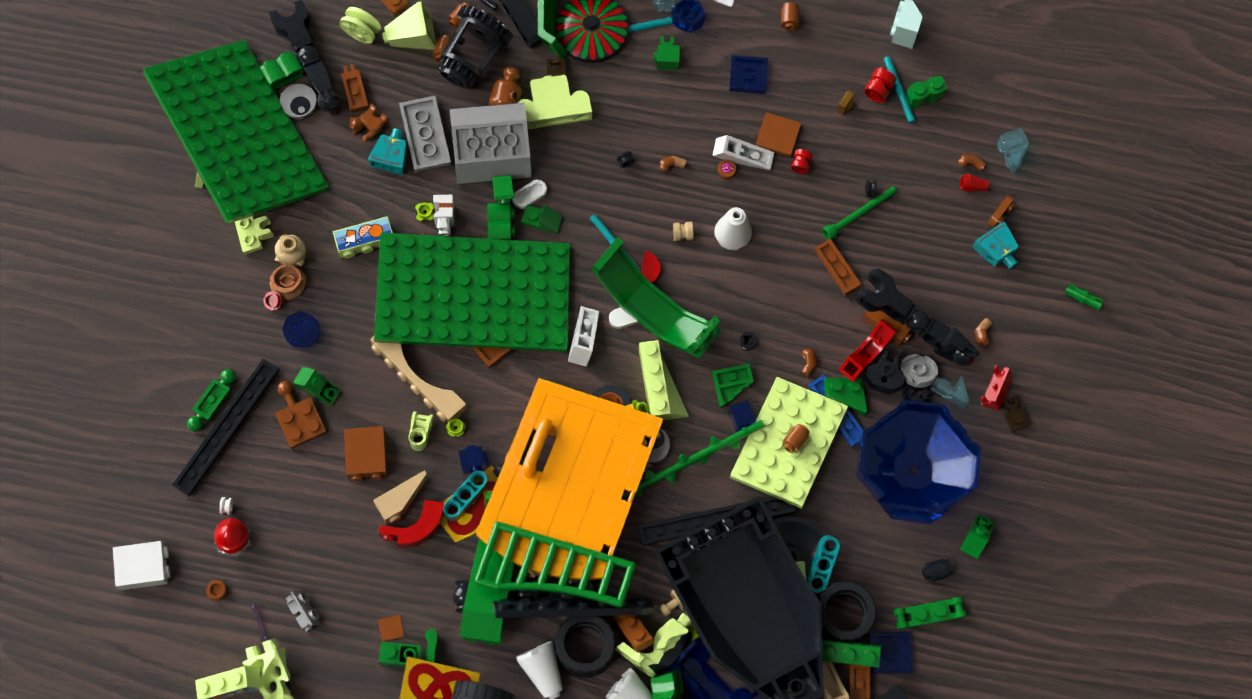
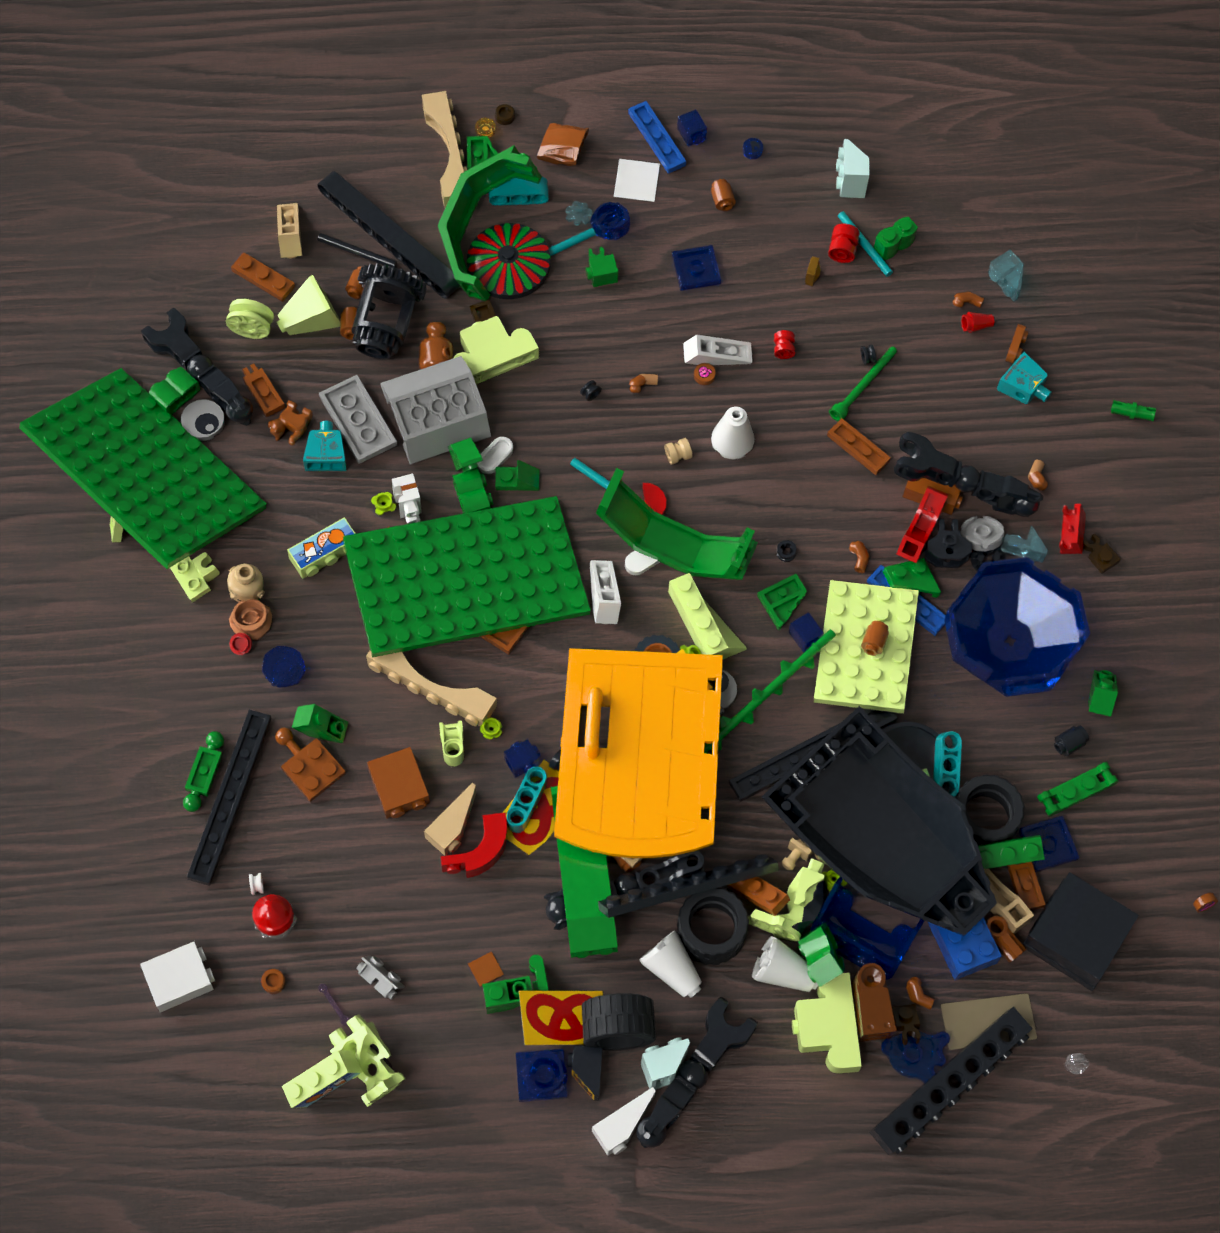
camera: 15 degrees left, 5 degrees down
(541, 584) = (646, 867): green bar -> none
(778, 134) = (749, 322): dark orange tile -> none

